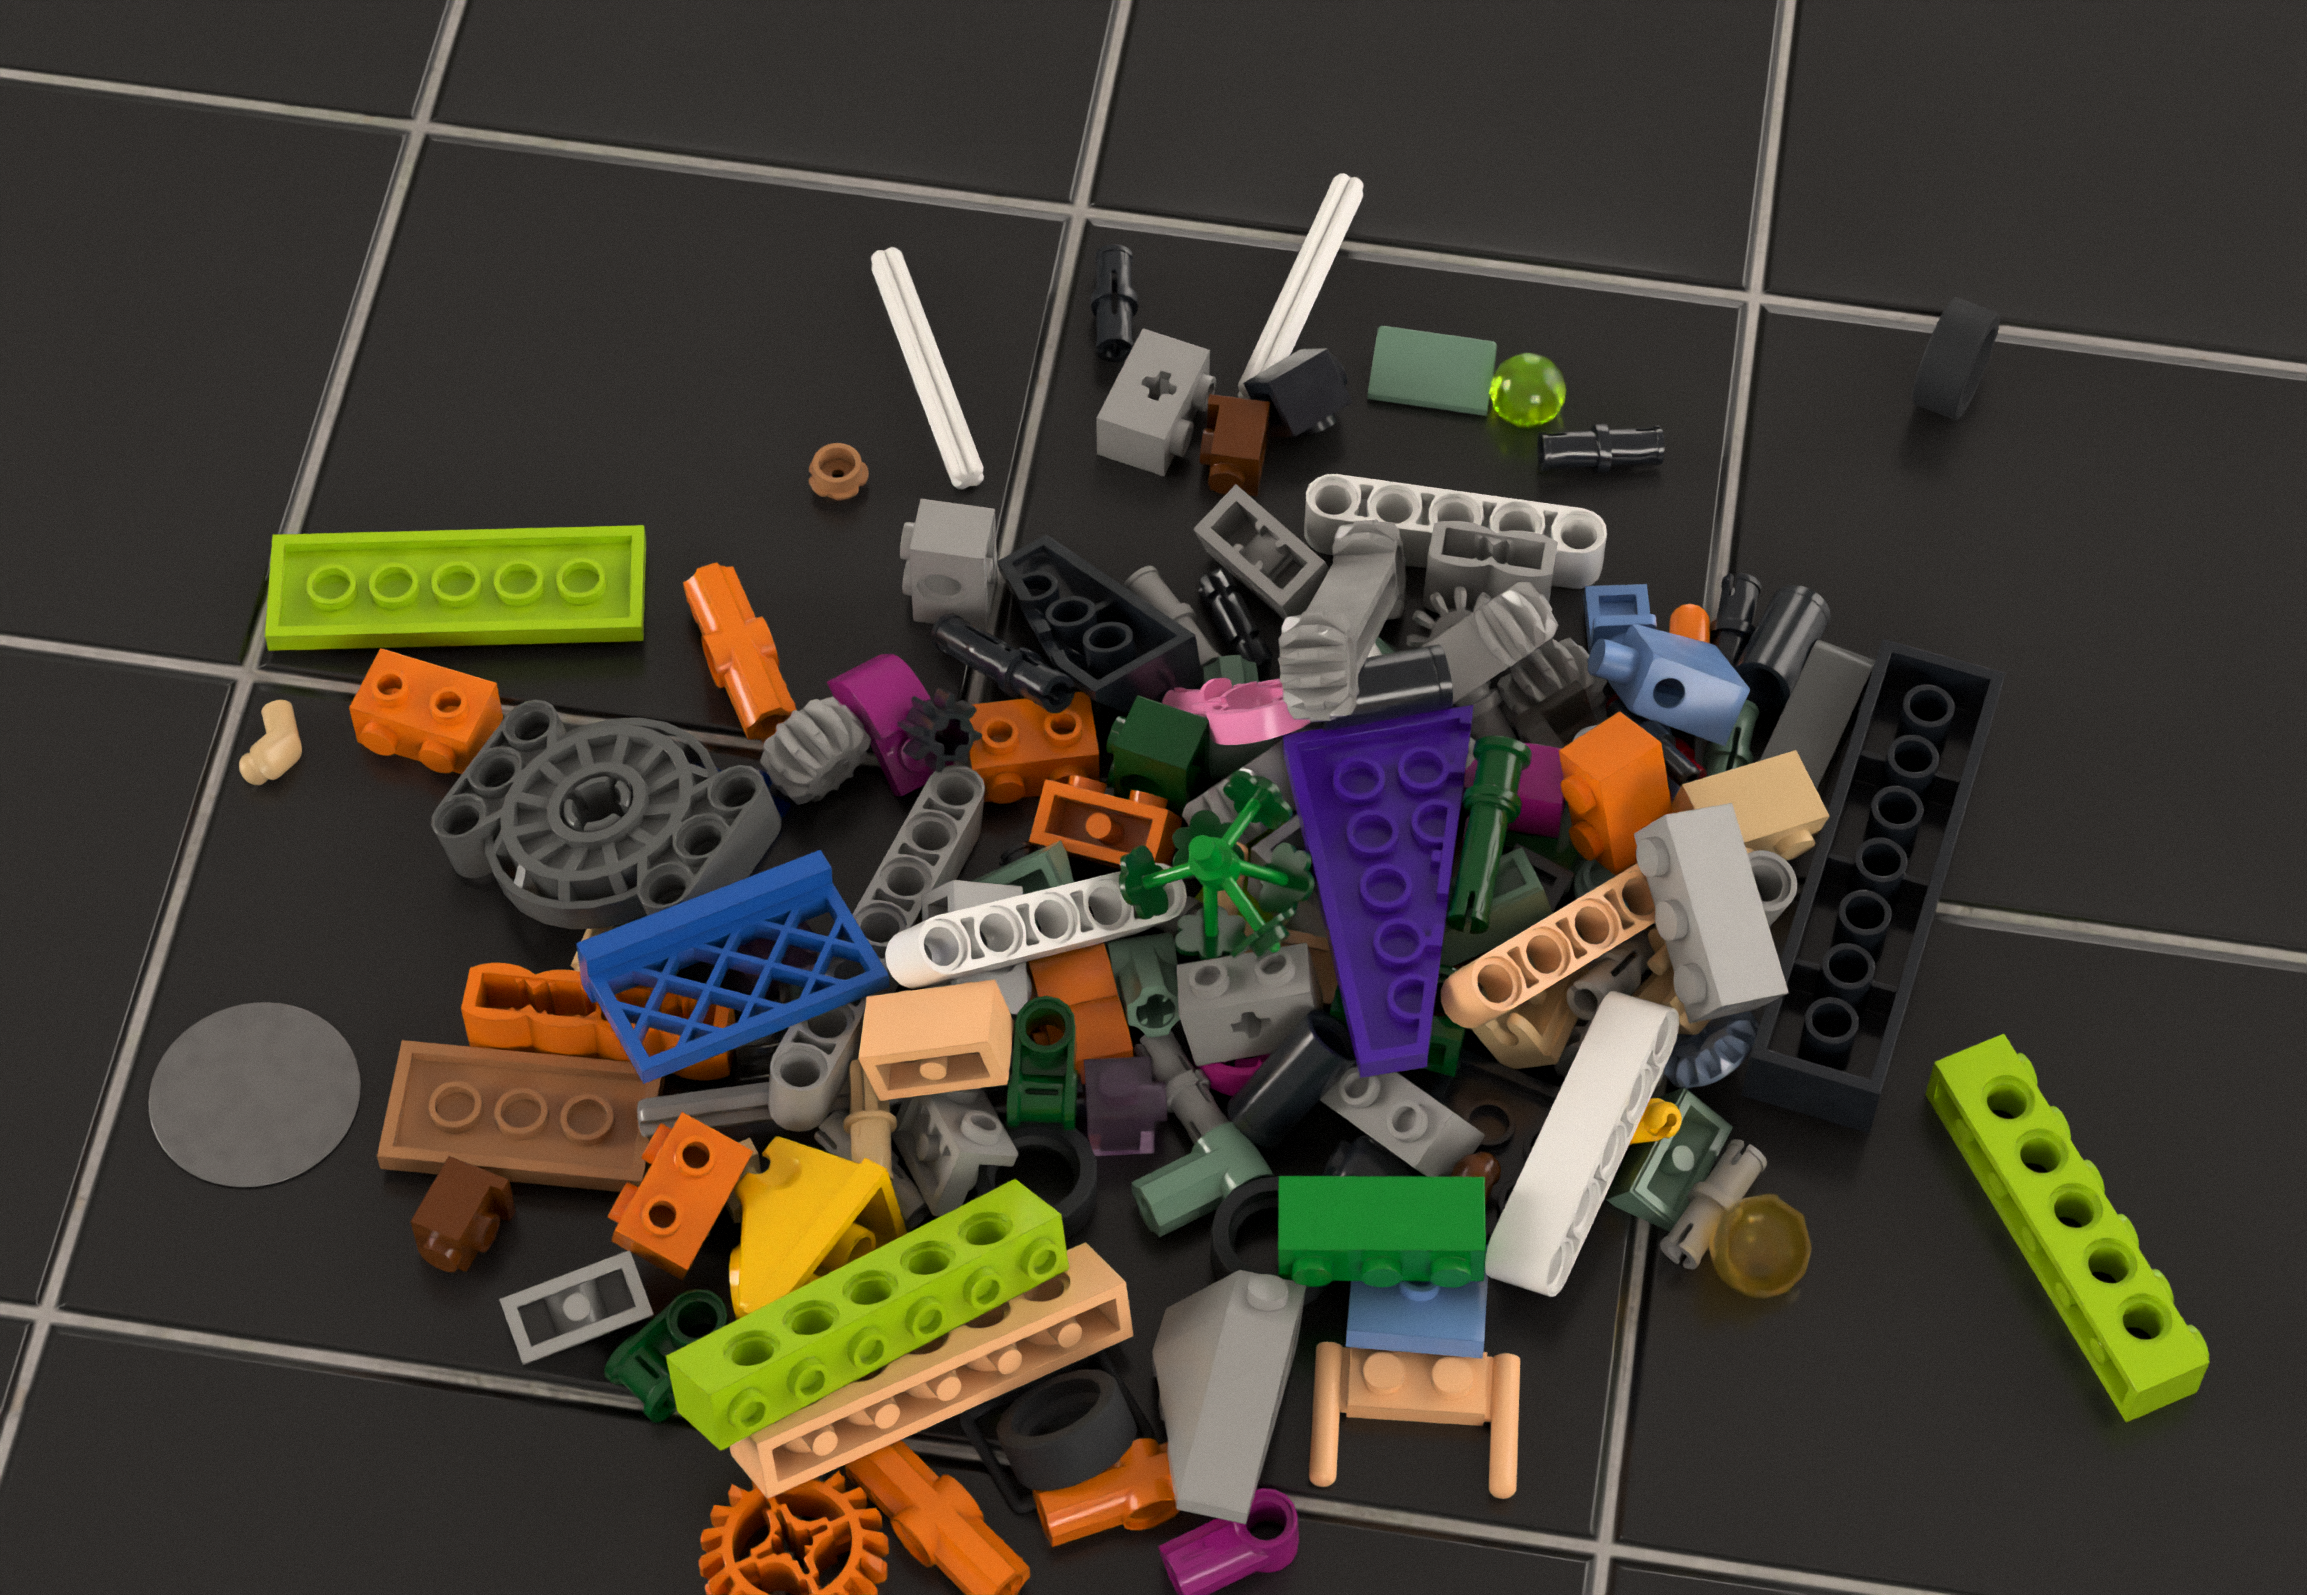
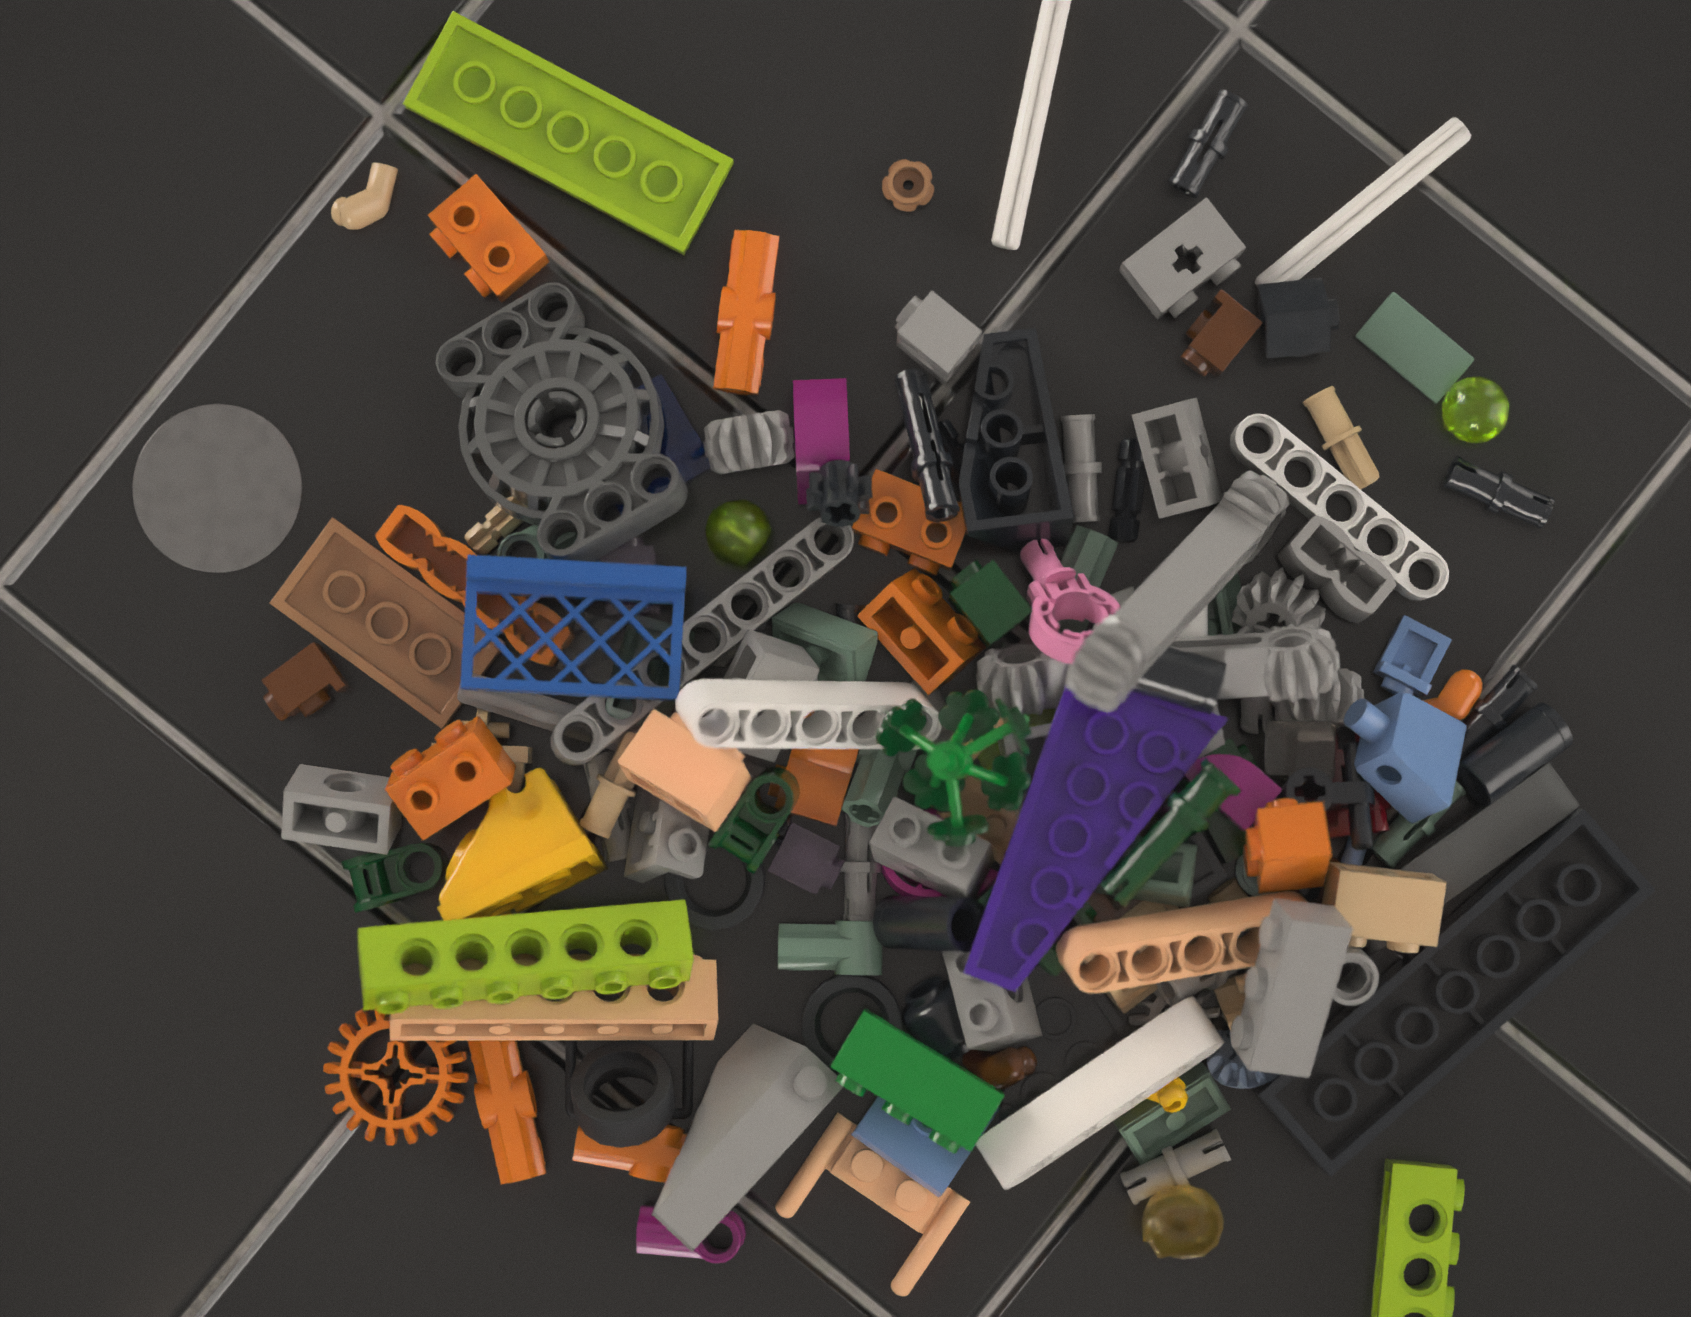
camera: 30 degrees right, 30 degrees up
(853, 843) = (737, 531): none -> clear neon green piece
(1388, 463) = (1342, 437): none -> tan axle

